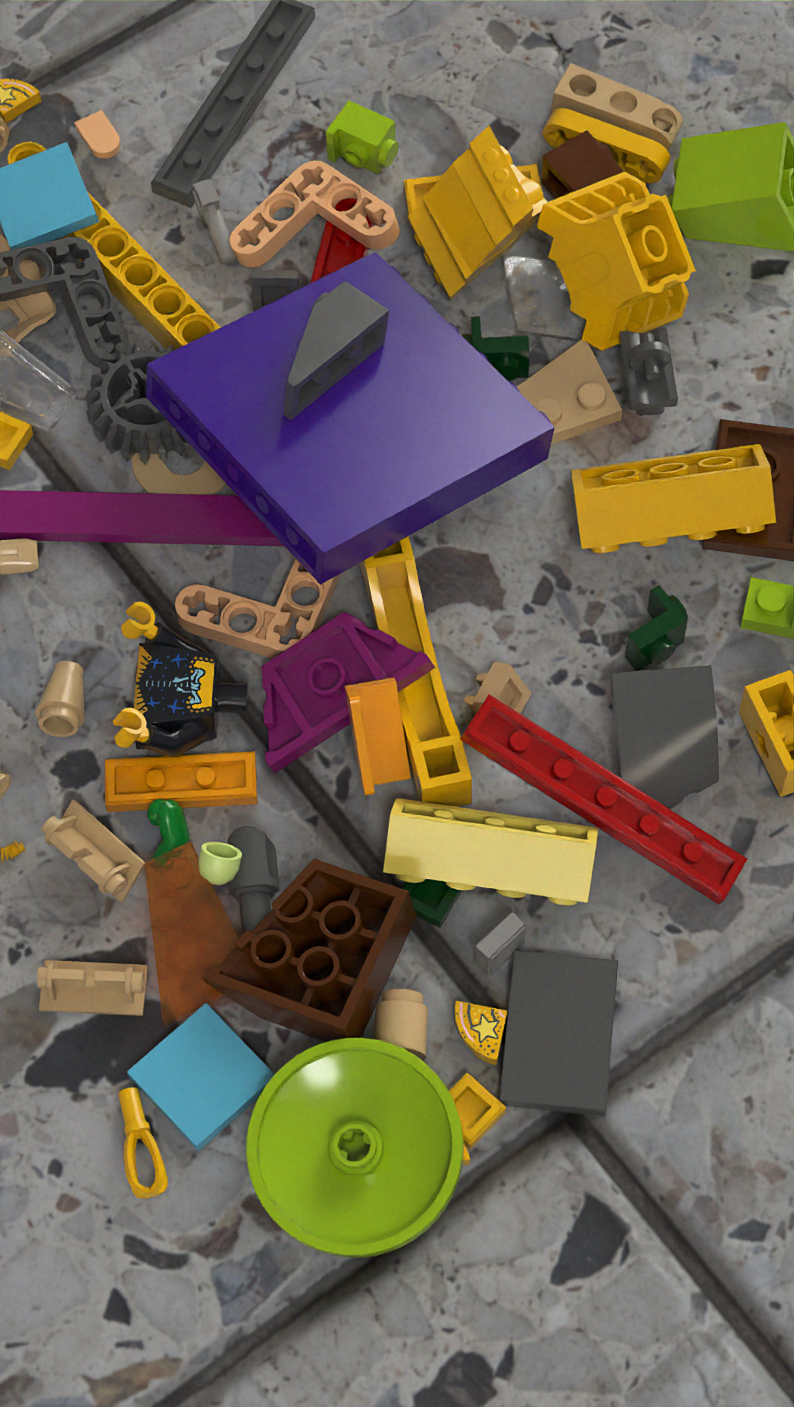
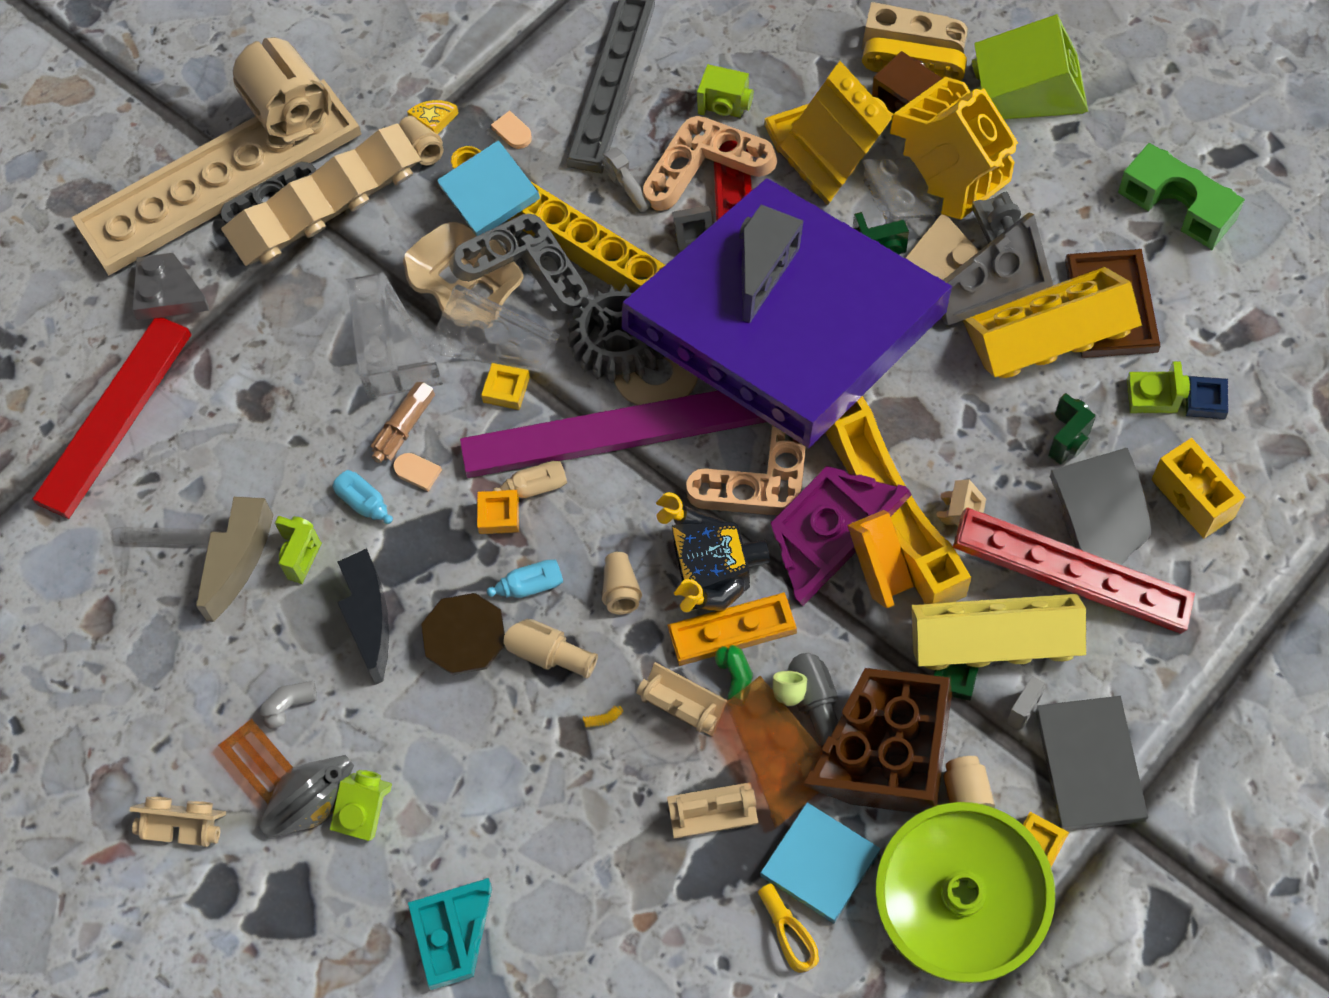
camera: 10 degrees left, 0 degrees up
(481, 1029) = (1029, 774): yellow tile -> none
(624, 425) = (999, 273): none -> flat silver wing

